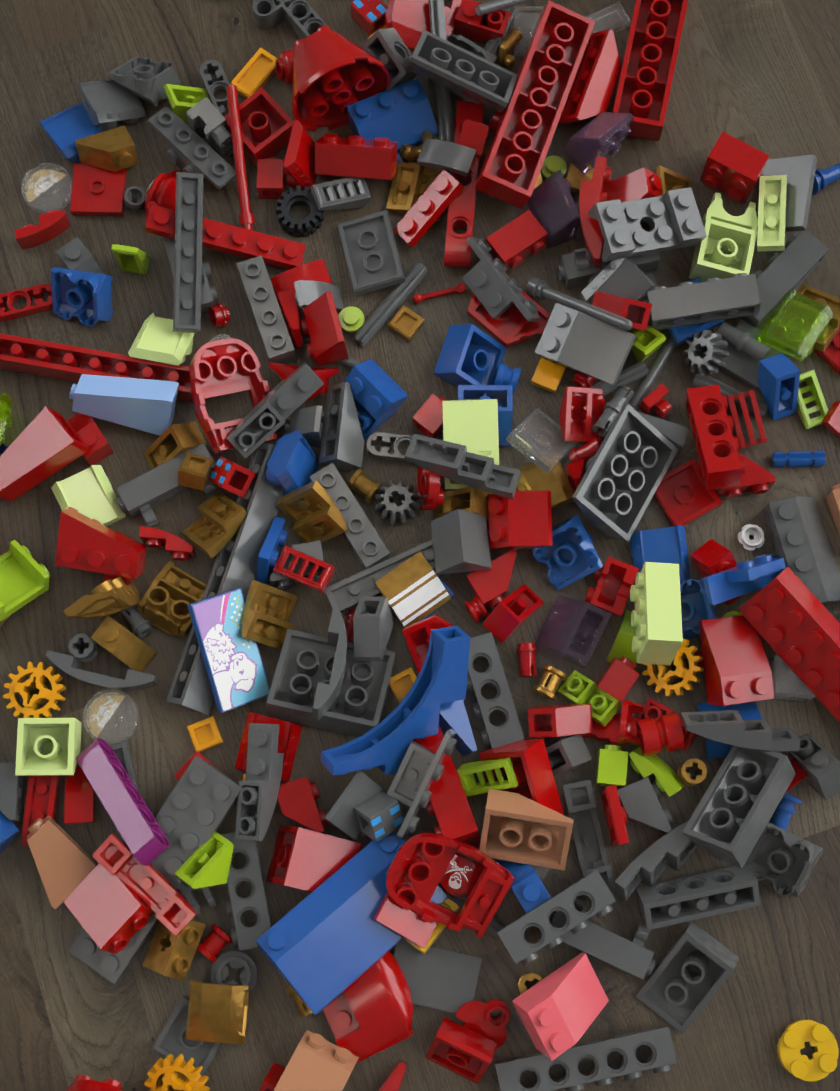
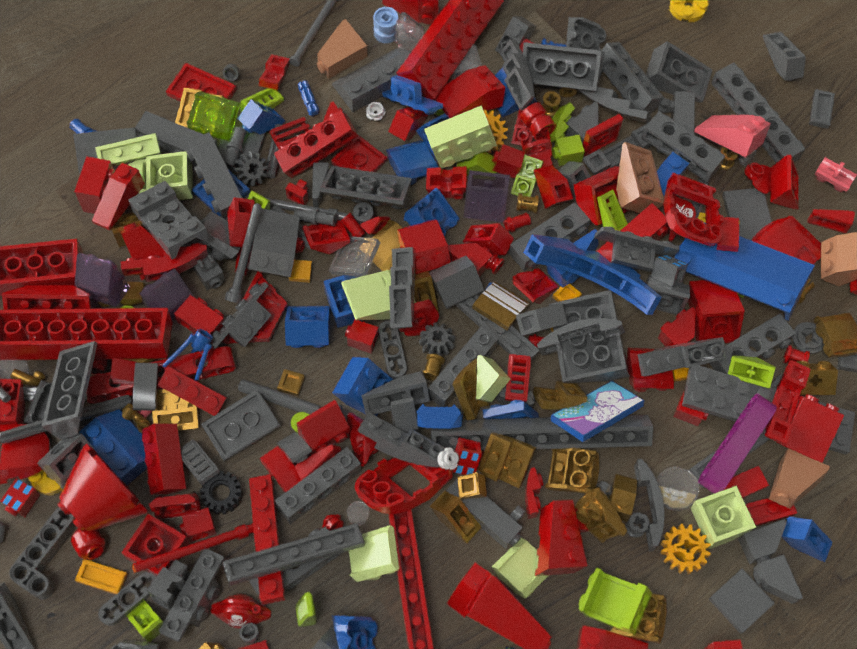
camera: 115 degrees left, 10 degrees down
(127, 401) = (434, 560): light blue slope -> none
(205, 734) = (660, 416): light orange tile -> none
(234, 443) = (443, 459): none -> white plate
(316, 534) = (490, 379): none -> yellowish green slope
(460, 289) = (249, 354): red hinge -> none
(477, 223) = (199, 341): none -> blue plant
(508, 376) = (313, 294): blue wheel -> none
(709, 183) = (122, 185): none -> red slope

